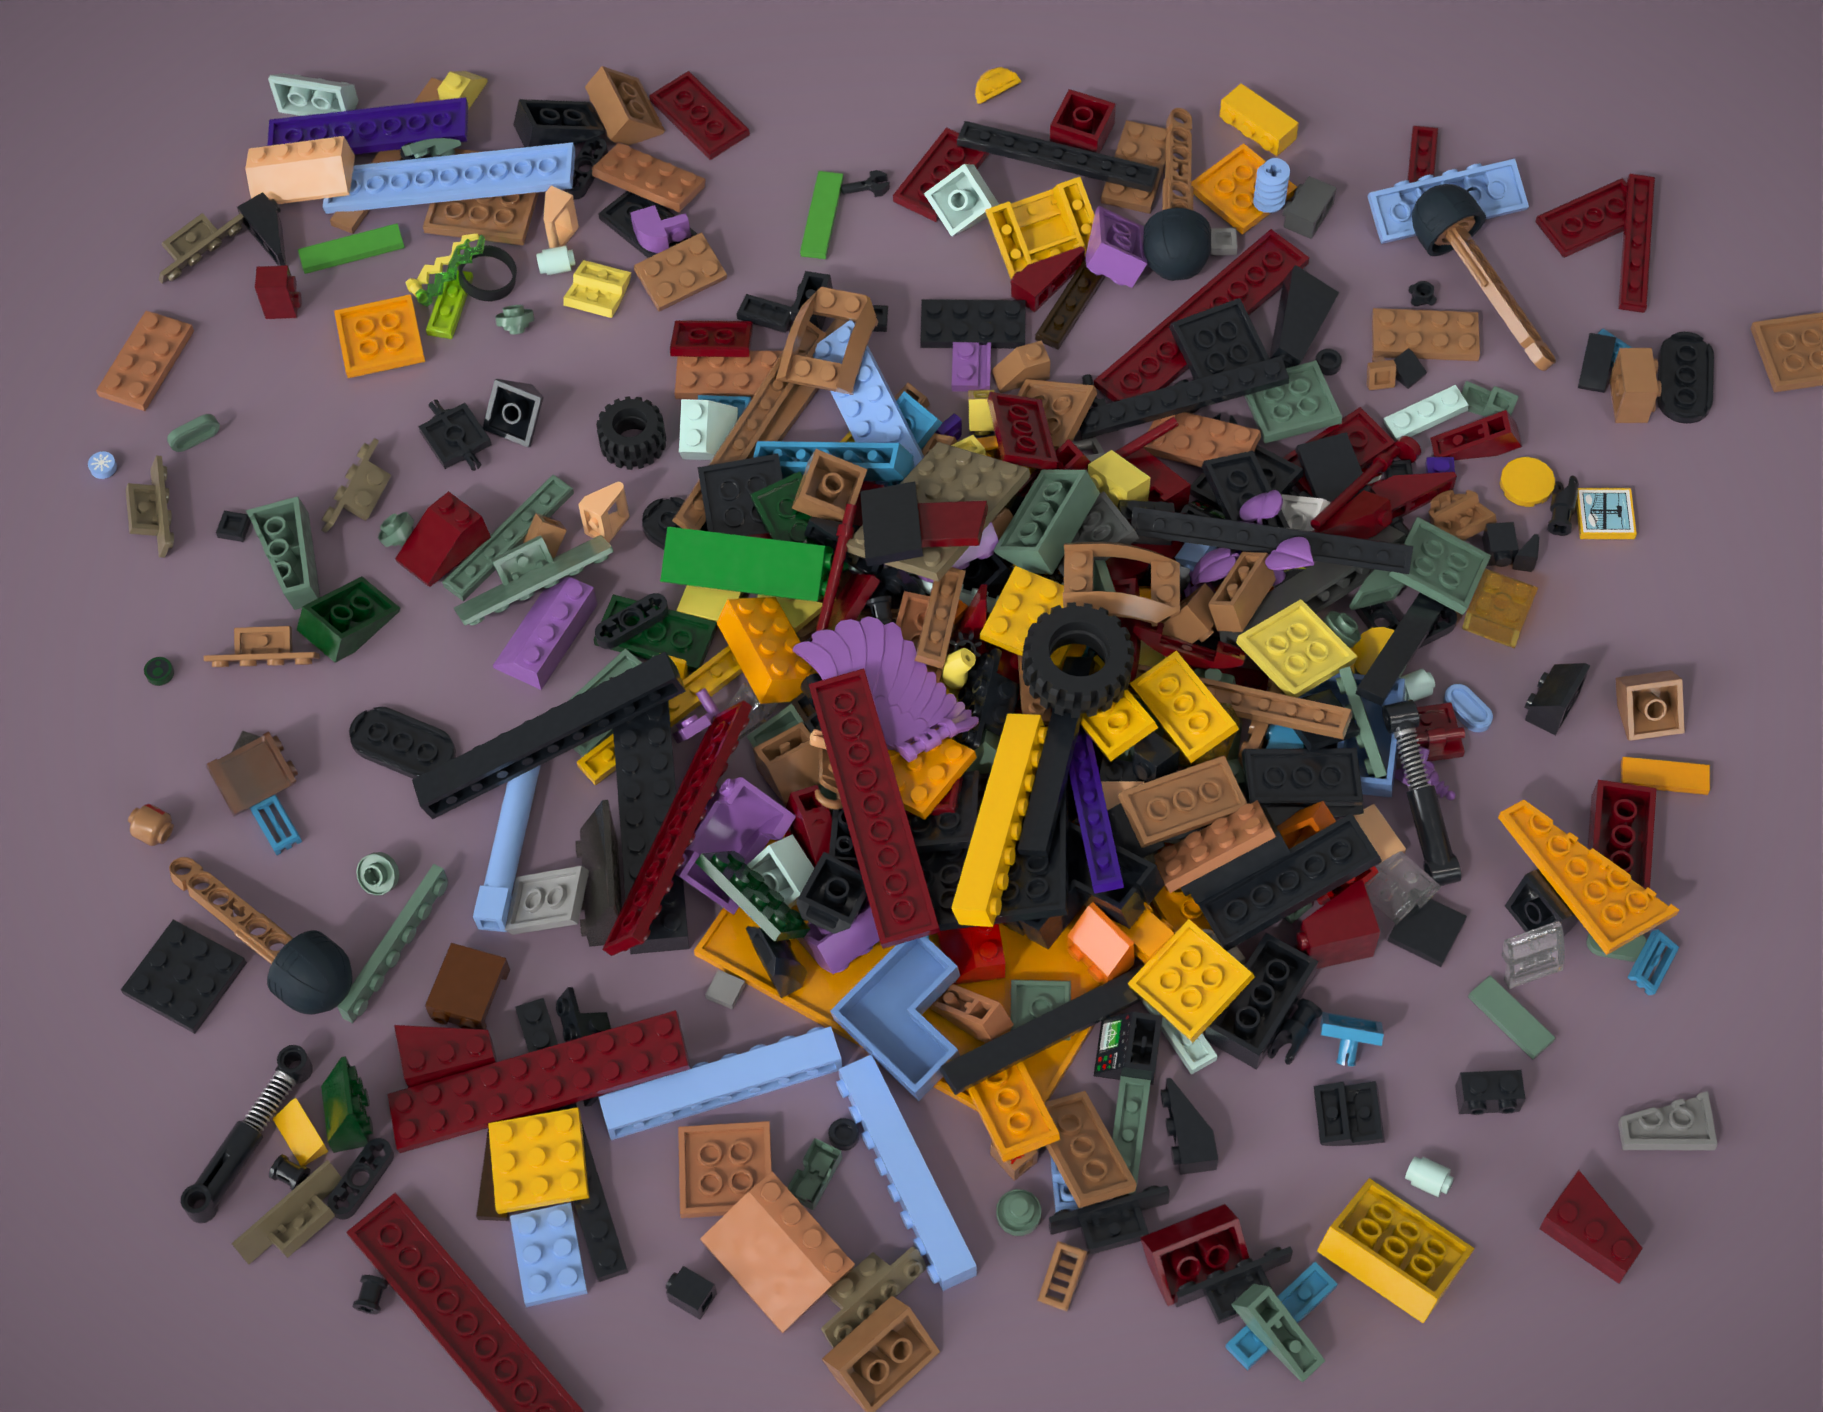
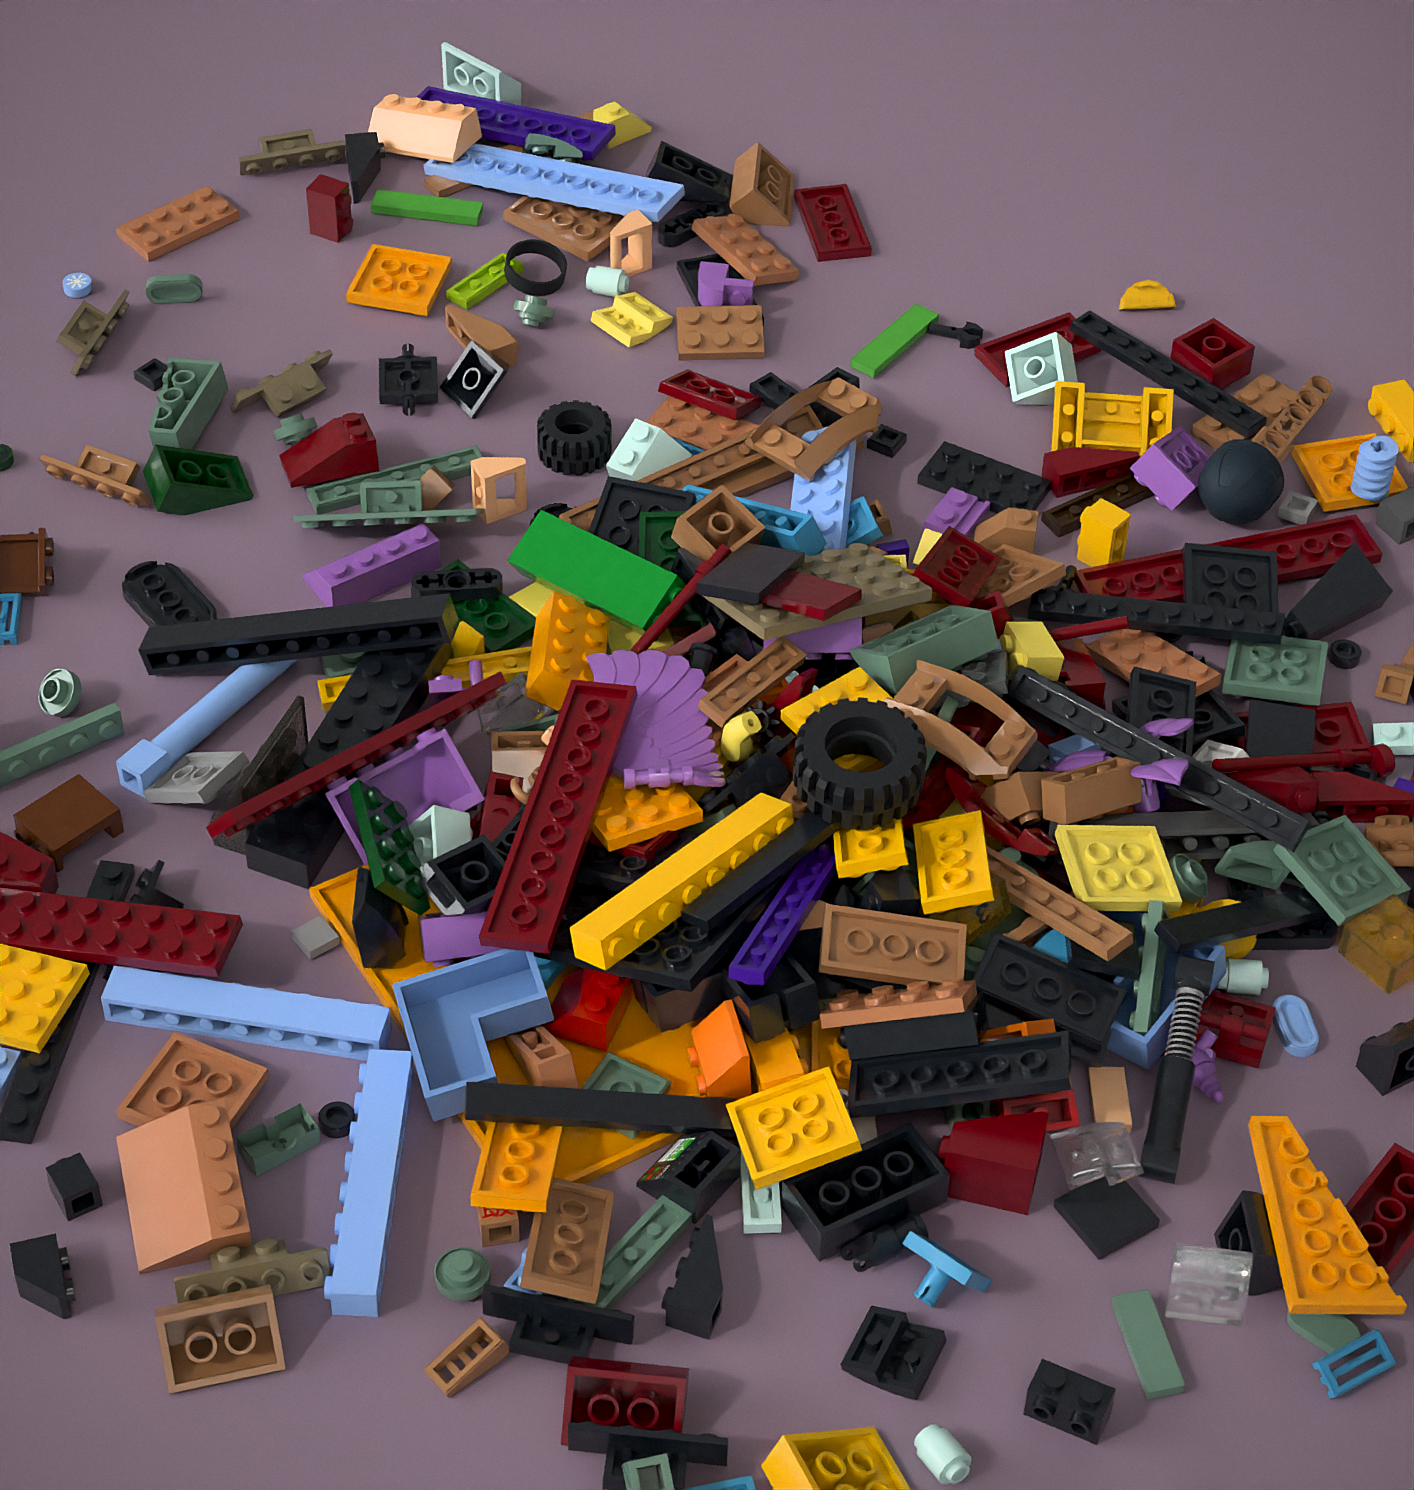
camera: 25 degrees right, 15 degrees down
(453, 261) = (517, 239): clear neon green piece -> none
(487, 364) = (492, 336): none -> medium nougat slope
(717, 1374) = (40, 1274): none -> black slope
(1100, 339) = (1103, 534): none -> yellow brick

